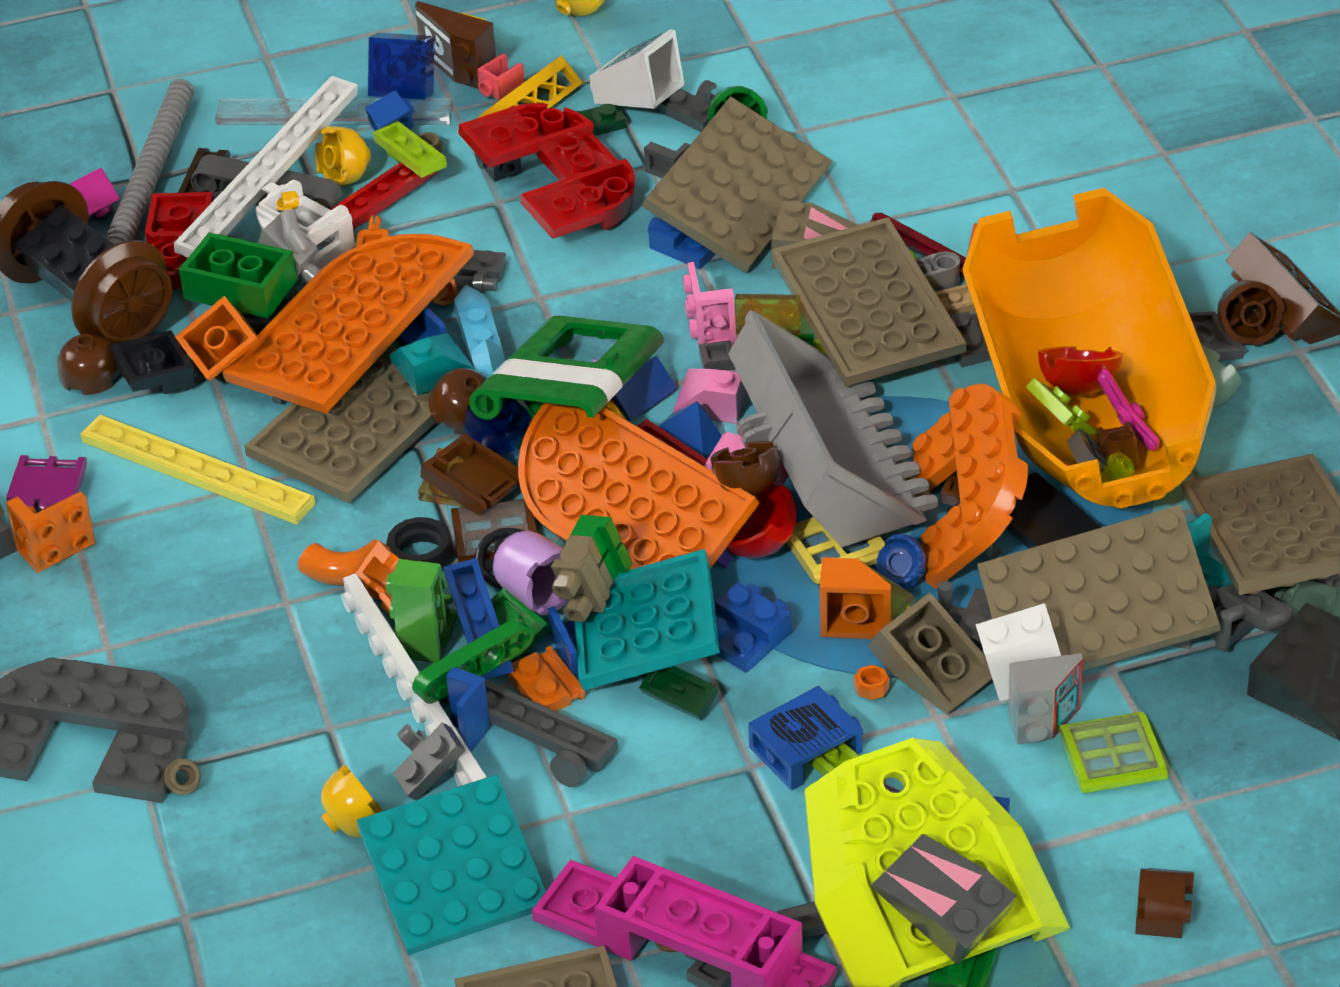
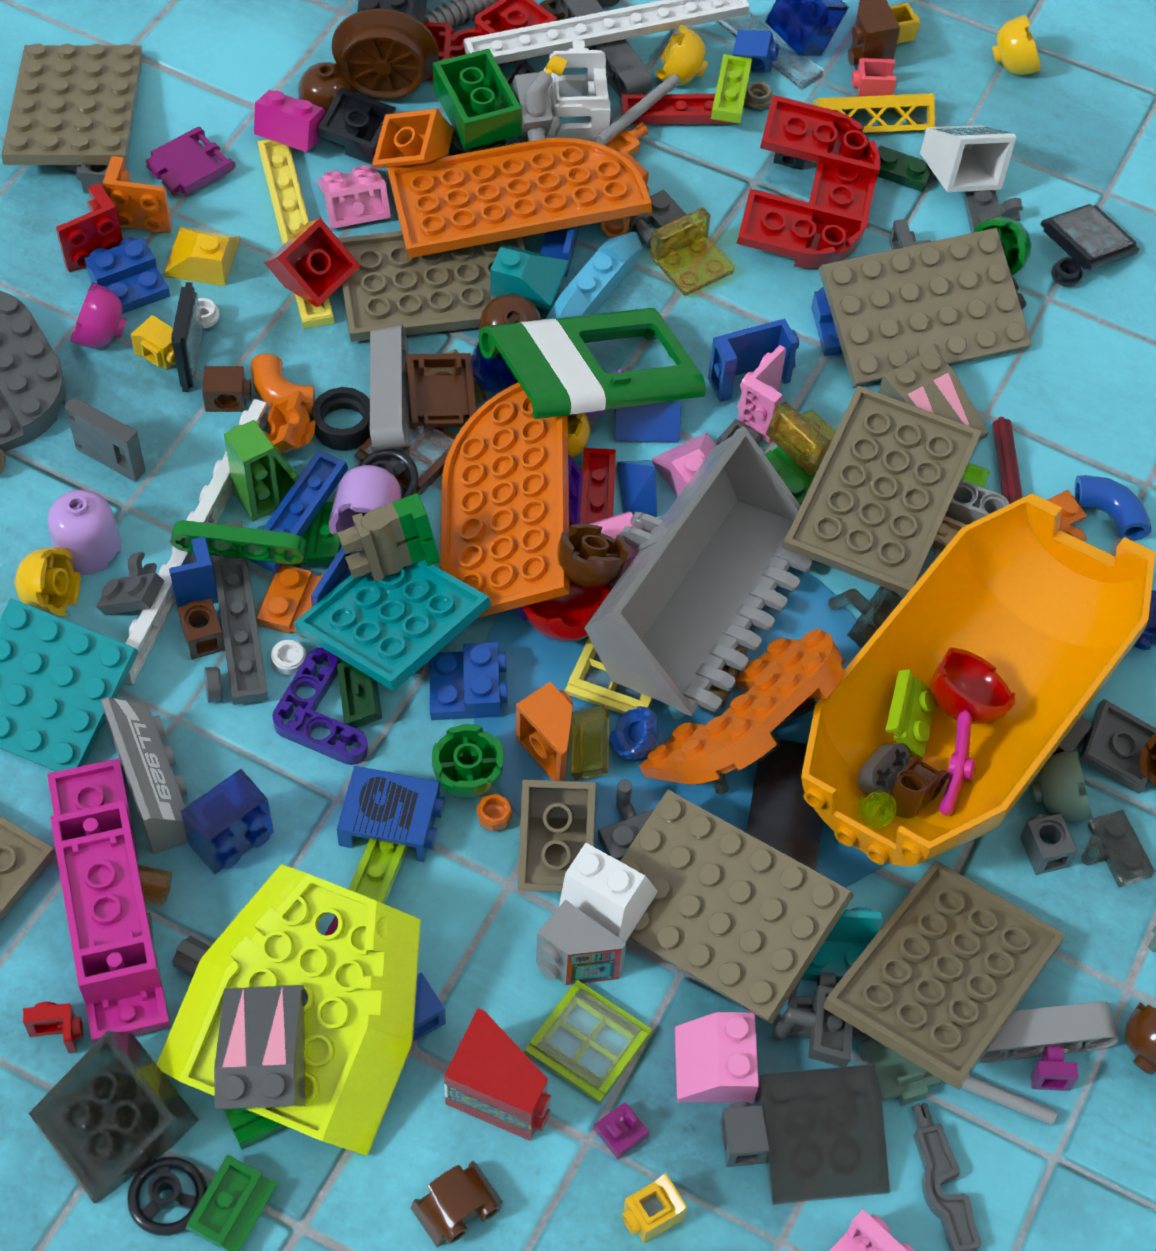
camera: 40 degrees right, 15 degrees up
(47, 568) = (90, 231): none -> red bracket
(96, 395) = (287, 120): none -> dark pink slope
(108, 589) = (129, 273): none -> blue plate
(133, 625) = (98, 318): none -> dark pink cylinder
(149, 534) = (202, 256): none -> yellow slope
(205, 606) = (154, 342): none -> yellow window
(207, 567) = (209, 312): none -> white plate
(218, 408) = (354, 196): none -> bright pink bracket
(235, 577) = (187, 336): none -> black piece
(256, 466) = (313, 263): none -> red slope
(259, 688) = (101, 438): none -> dark grey container
(302, 596) = (225, 388): none -> reddish brown brick
(328, 742) = (86, 528): none -> lavender cylinder
(359, 216) = (638, 109): none -> light grey bar
(432, 498) = (388, 388): none -> light grey beam
(509, 743) = (201, 640): none -> reddish brown brick
(525, 274) = (689, 254): none -> clear yellow bracket
(595, 713) = (288, 657): none -> white tile
(597, 844) = (148, 771): none -> light grey slope
(663, 286) = (743, 351): none -> blue panel
(663, 737) = (308, 719): none -> dark purple beam
(712, 823) = (228, 822): none -> clear blue brick
(782, 72) = (1089, 237): none -> piece
(794, 104) = (1067, 272): none -> black plate
(821, 659) = (468, 761): none -> green cylinder
(950, 373) = (872, 612): none -> clear smoke plate
(1024, 207) = (1117, 502): none -> blue cylinder
(1098, 804) = (496, 1080): none -> red slope
(1202, 777) = (621, 1130): none -> magenta tile
(1206, 688) = (717, 1059): none -> bright pink slope
(1233, 420) = (1046, 856): none -> dark grey brick
(1273, 393) = (1119, 846): none -> clear smoke plate
(1279, 713) = (744, 1135): none -> dark grey brick
(1283, 794) = (653, 1209): none -> yellow window

